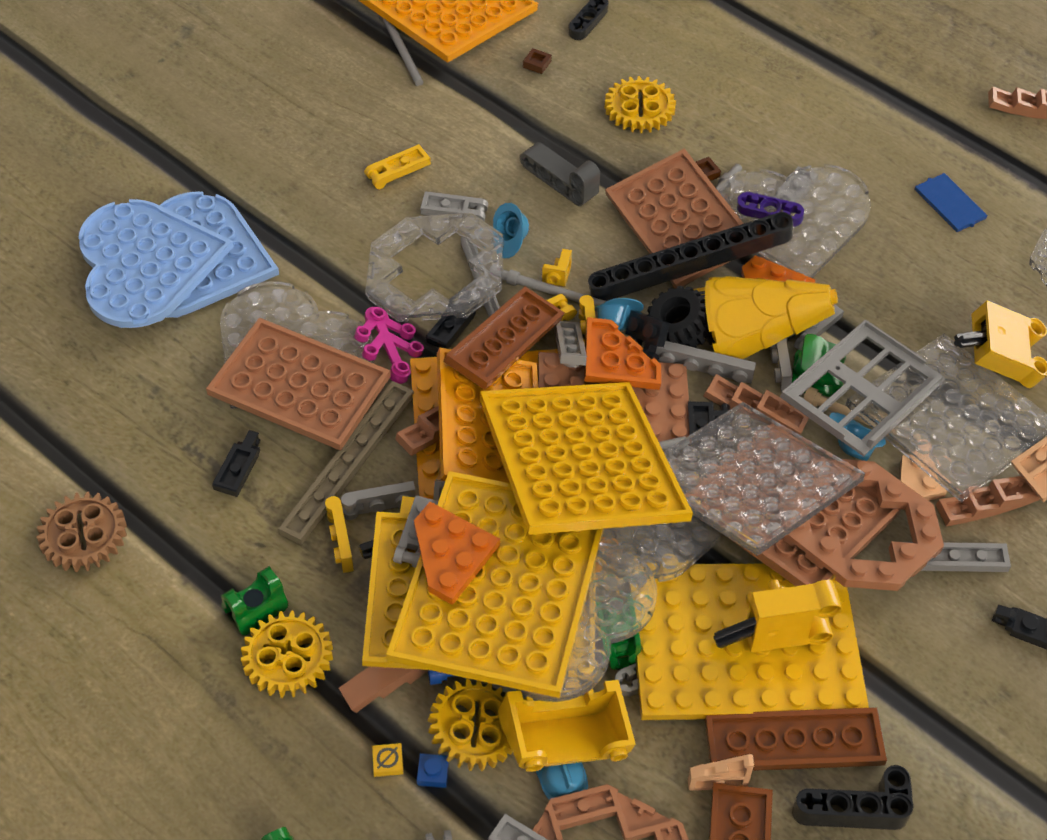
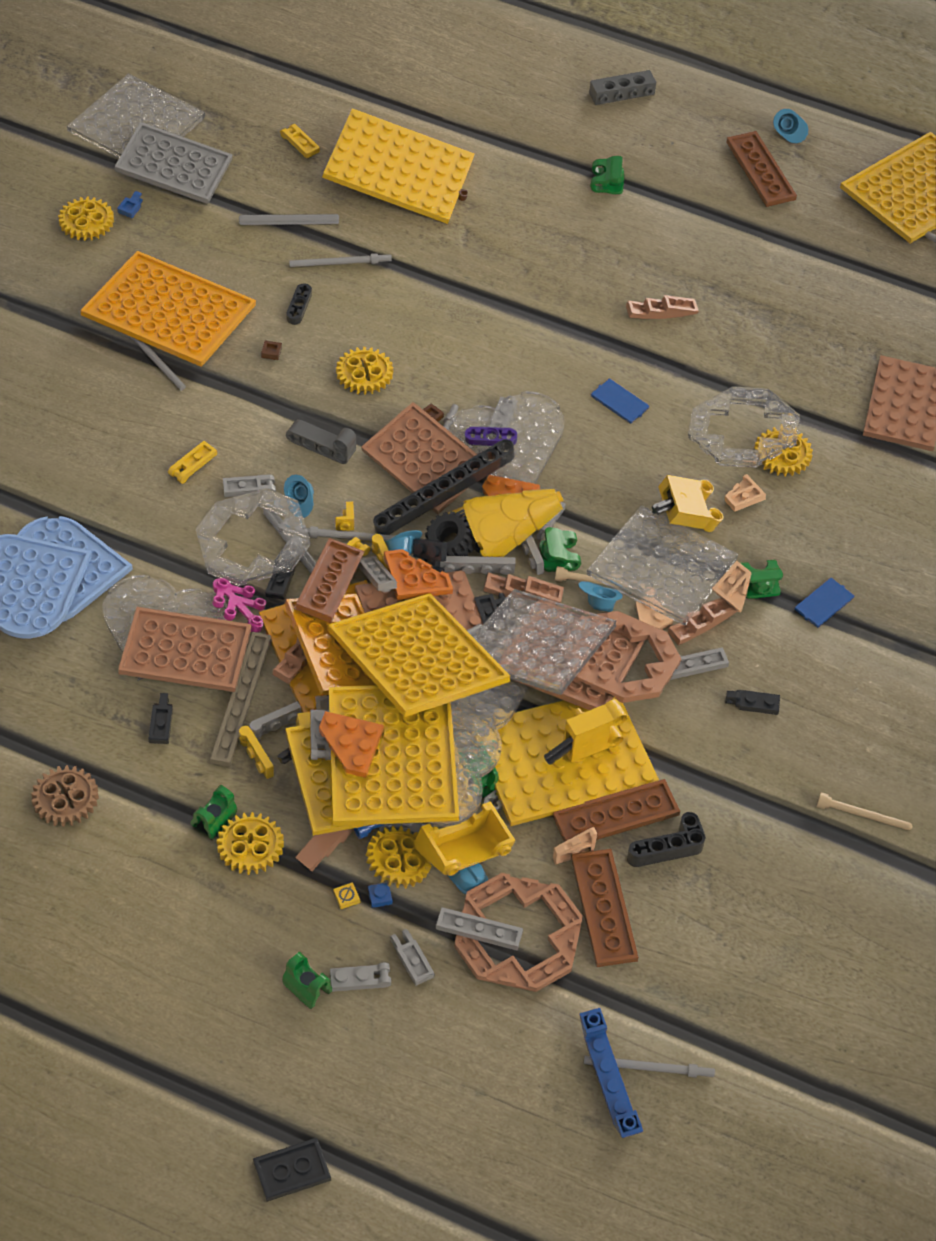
camera: 20 degrees left, 0 degrees up
(831, 363) = (606, 562): light grey door -> none

